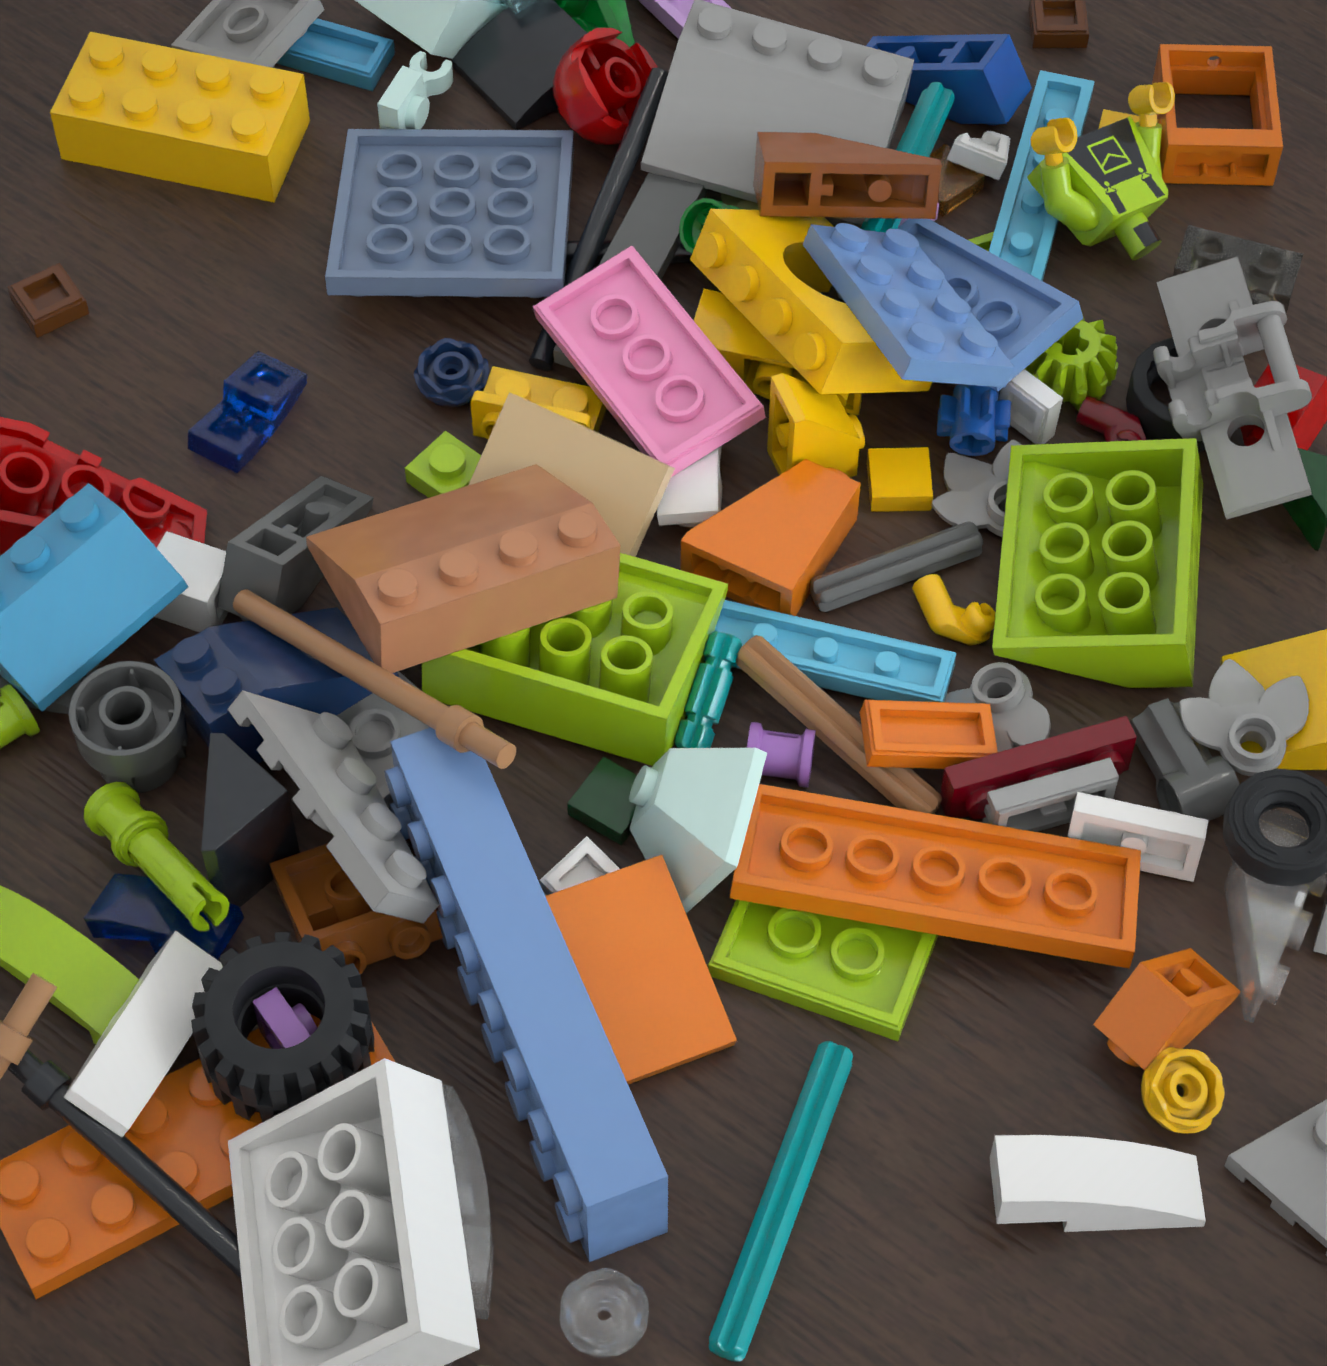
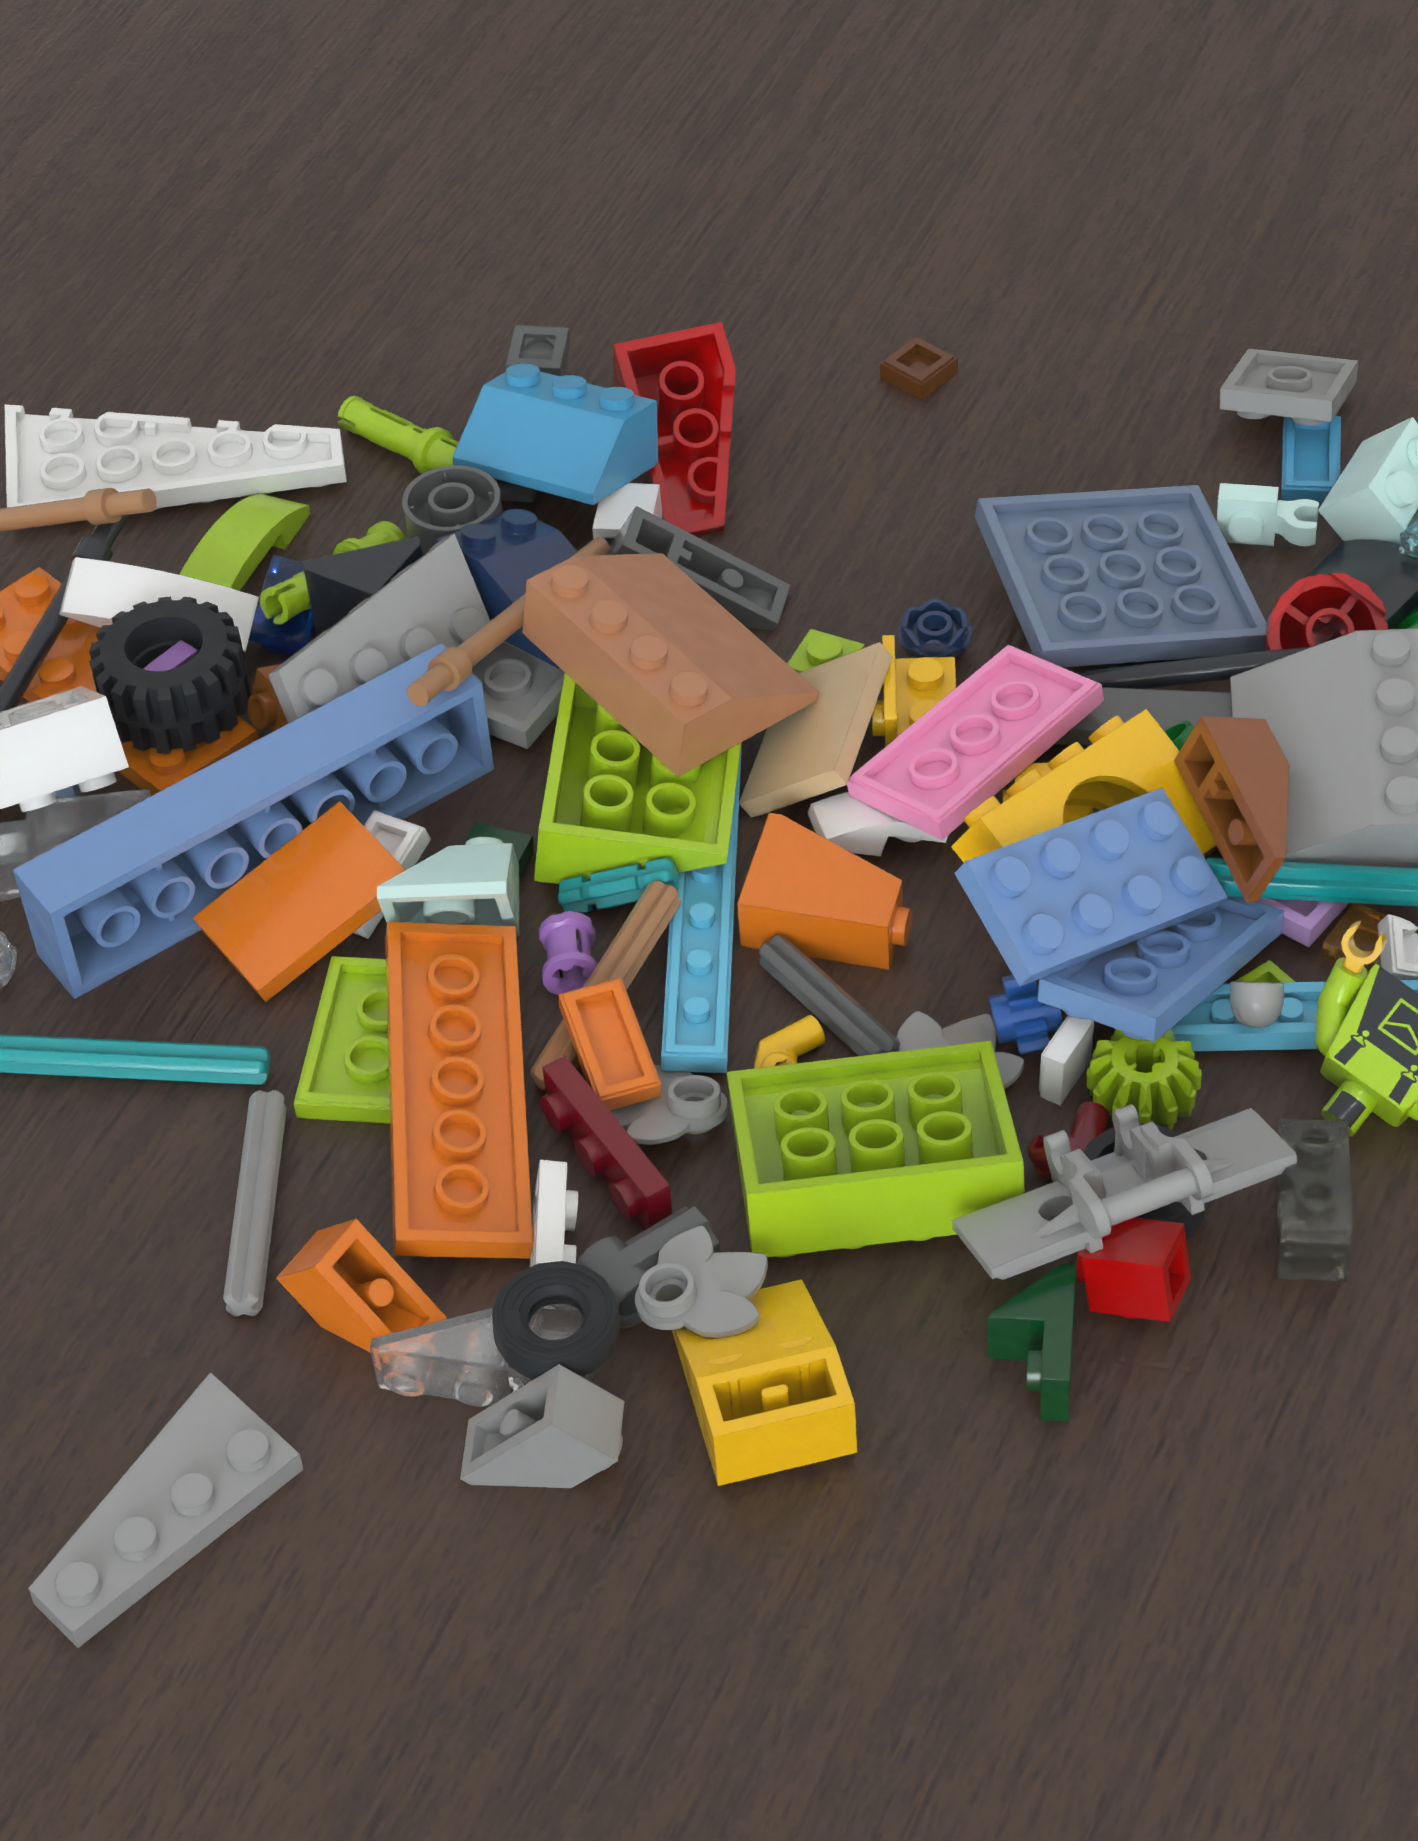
camera: 80 degrees right, 10 degrees down
(181, 116) = (1157, 377): yellow brick -> none
(251, 411) = (826, 520): clear blue slope -> none
(811, 428) = (928, 879): yellow slope -> none
(899, 479) = (943, 984): yellow tile -> none
(1013, 1087) = (255, 1204): none -> light grey axle
(1029, 248) = (1256, 1002): none -> light grey hinge
(1050, 798) = (557, 1140): light grey tile -> none
(1094, 1183) = (155, 1270): white slope -> none
(1201, 1088) = (249, 1312): yellow plate -> none

